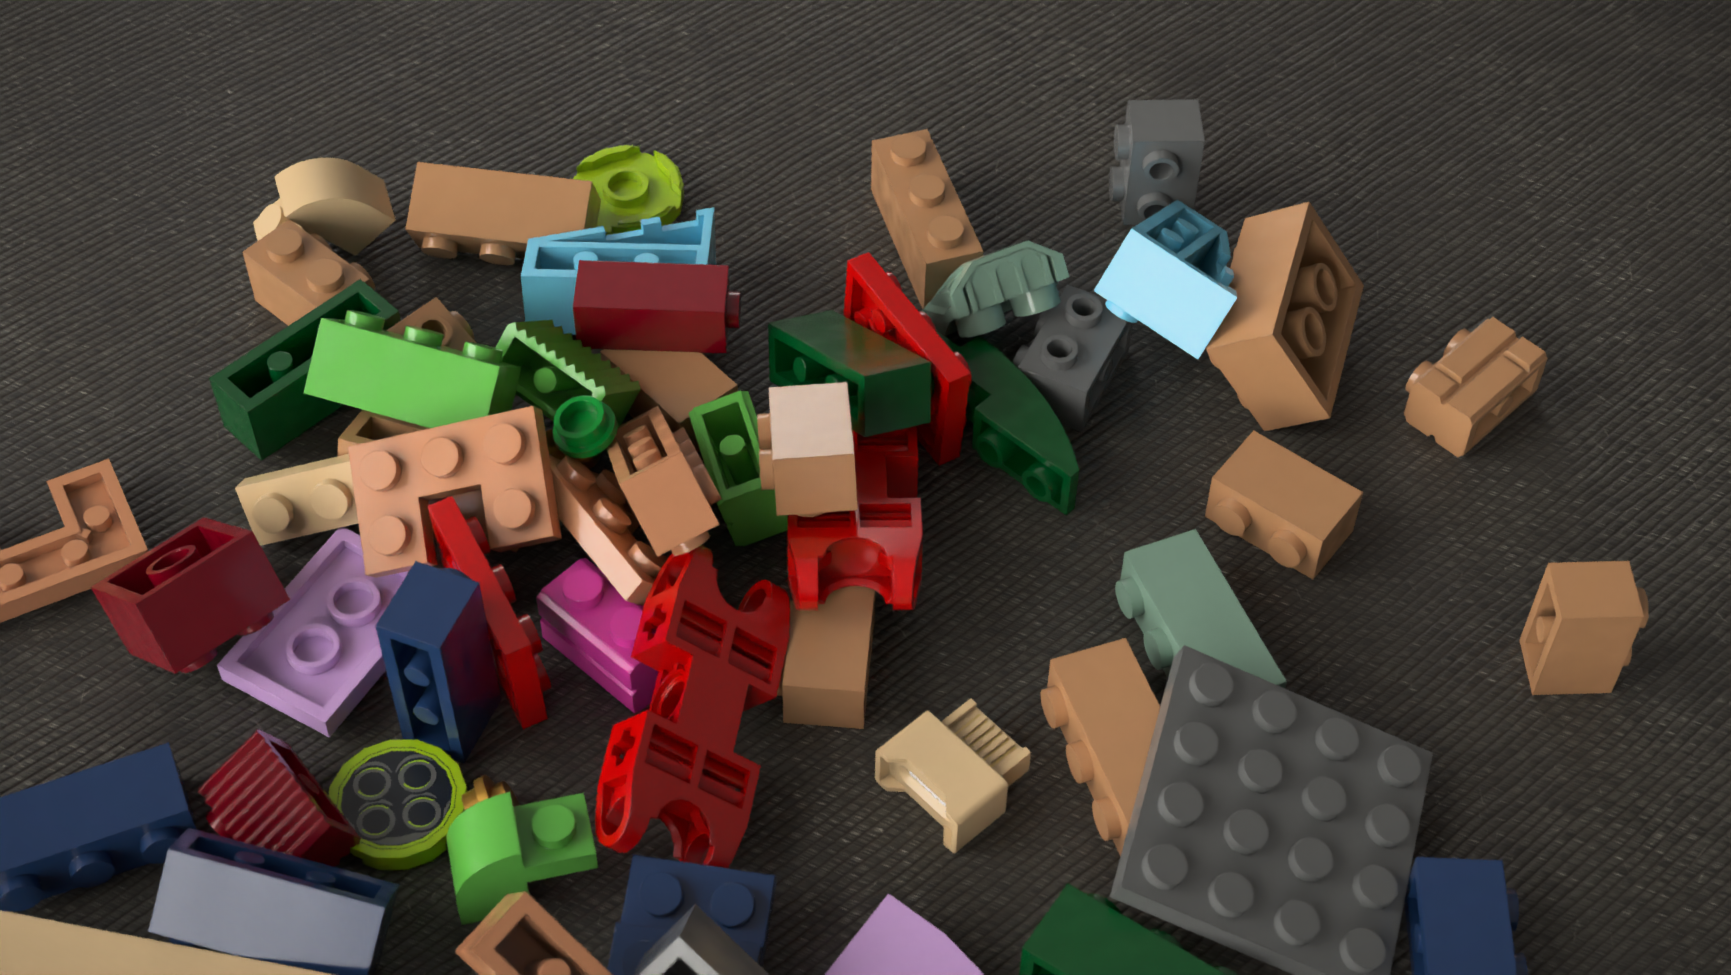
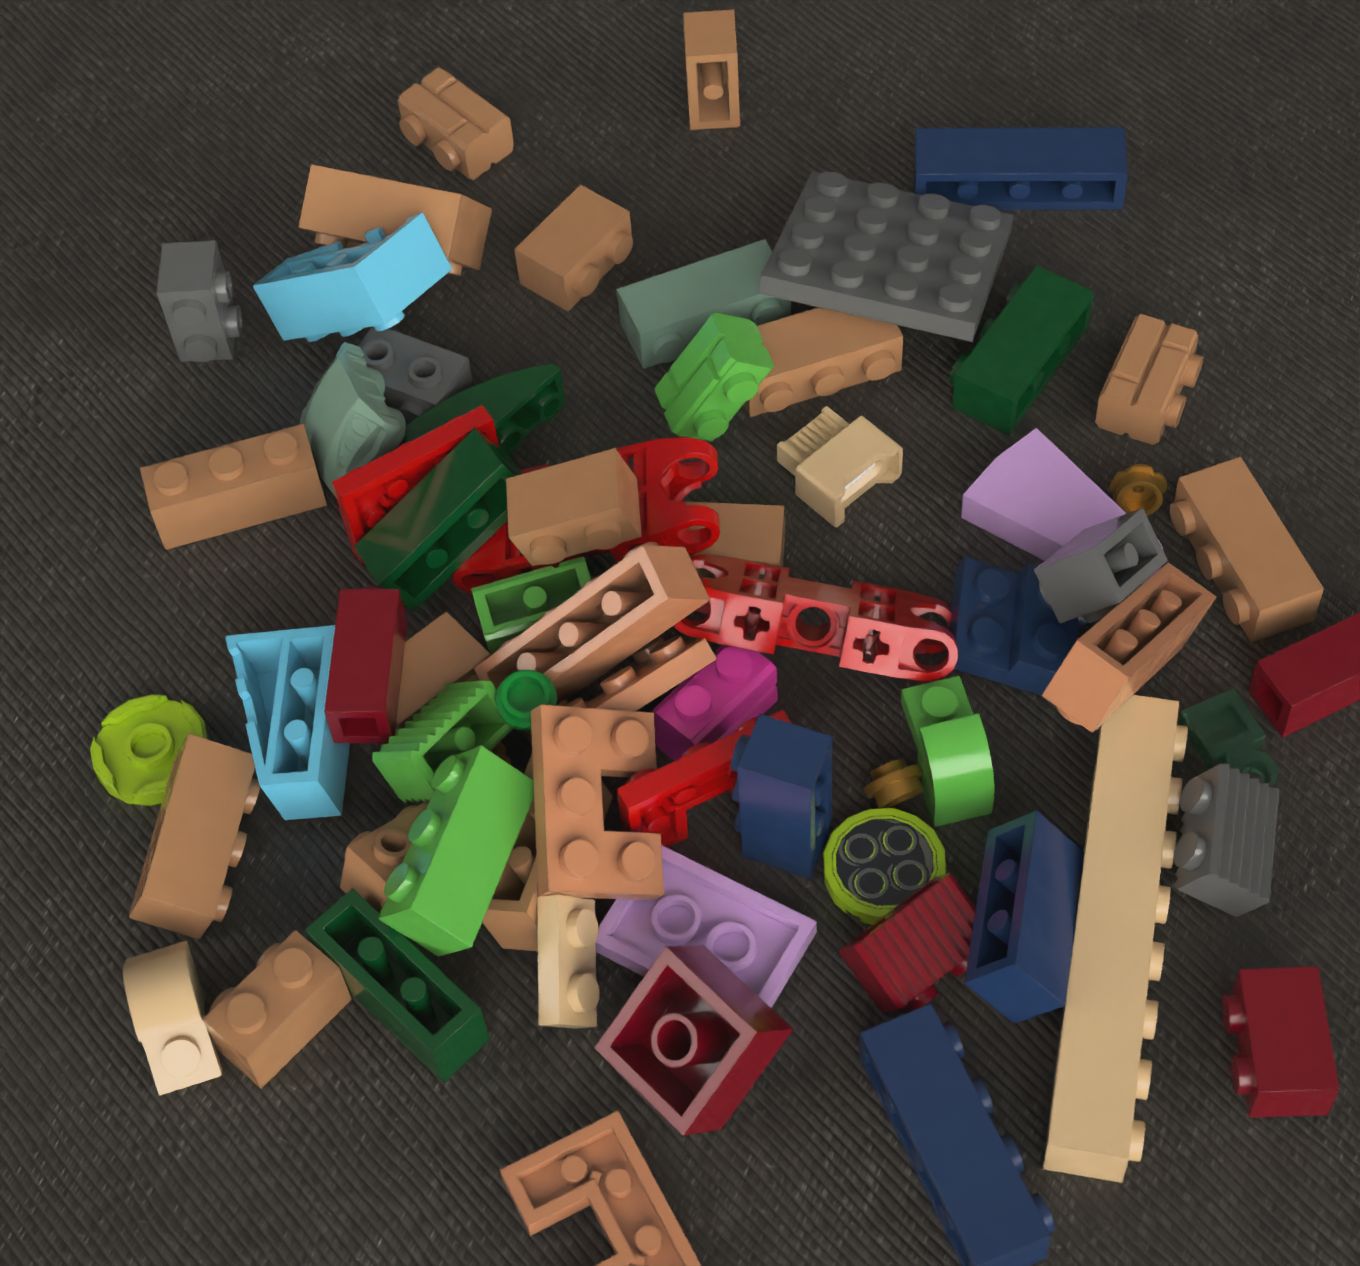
camera: 85 degrees left, 5 degrees up
(1053, 621) = (714, 377): none -> bright green brick

